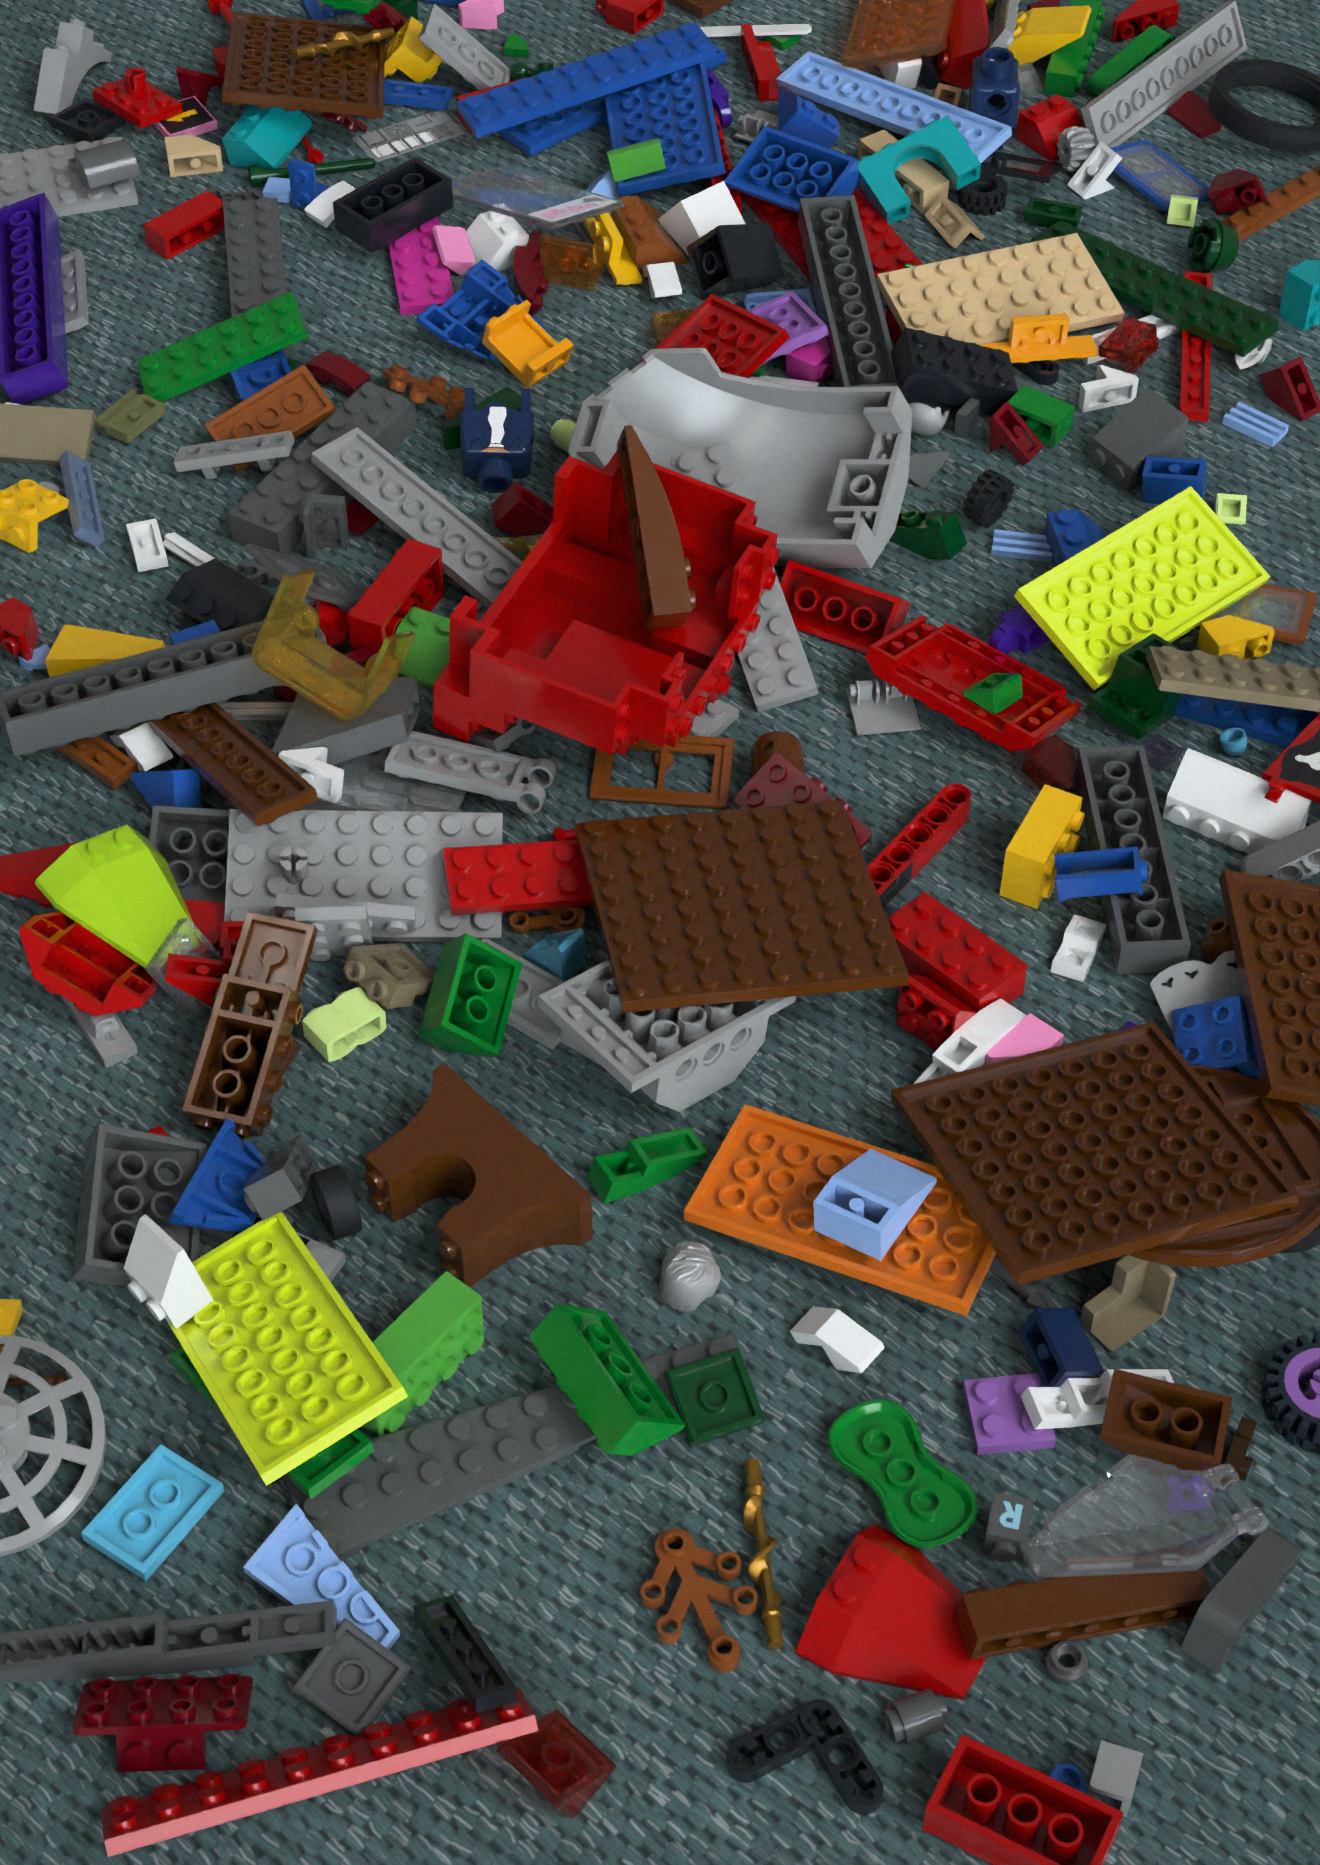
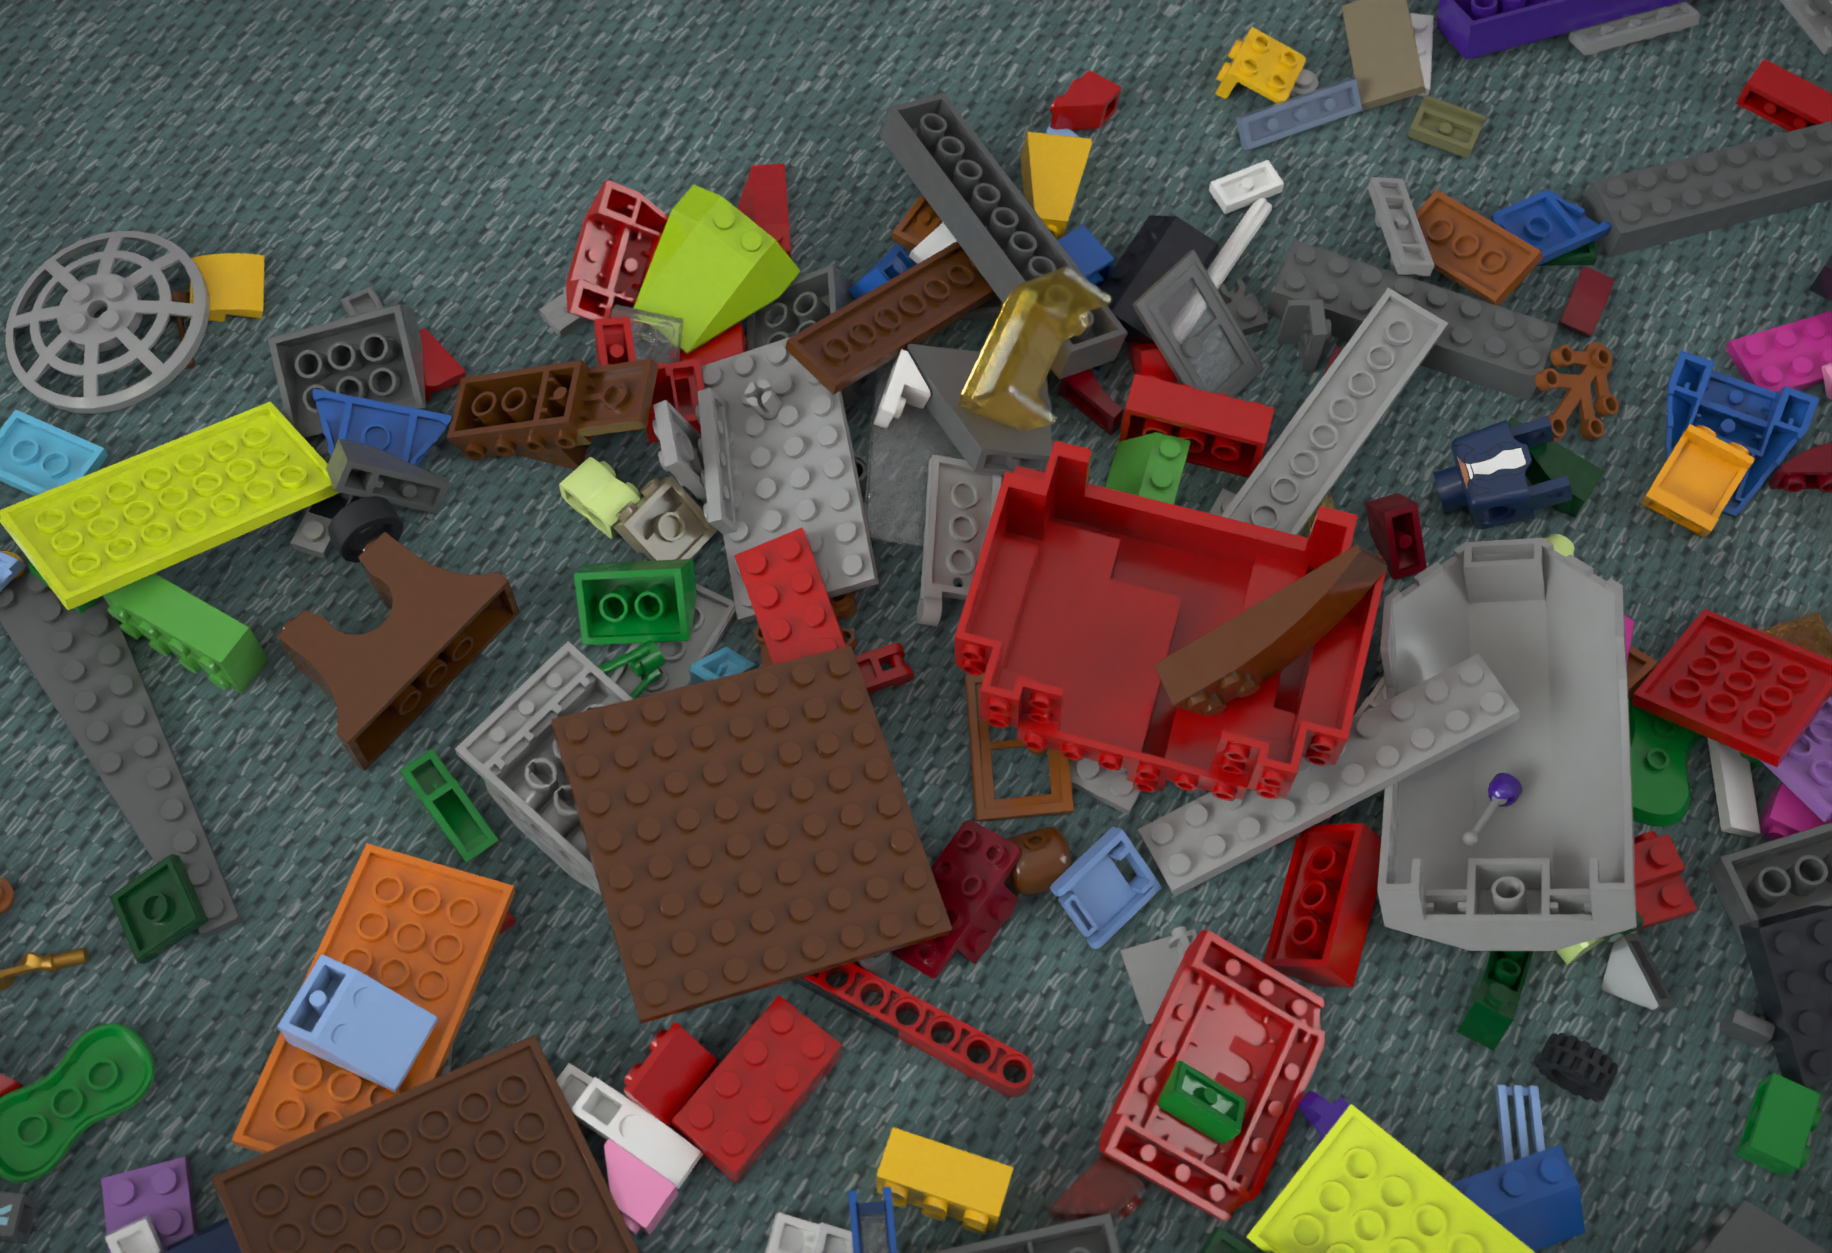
camera: 80 degrees right, 15 degrees up
(45, 1213) = (362, 302): none -> flat silver tile
(164, 1275) = (252, 405): white slope -> none
(222, 348) = (1566, 177): green plate -> none
(527, 994) = (642, 661): none -> green plant
(604, 1380) = (156, 801): green slope -> none
(688, 1276) = (306, 864): light grey hair -> none
(769, 493) = (1503, 792): none -> hinge
(808, 723) = (1097, 892): none -> medium blue container
(843, 1340) = (226, 1021): white slope -> none
(927, 420) = (1724, 972): light grey hair -> none
(1010, 429) = (1725, 1093): dark red slope -> none

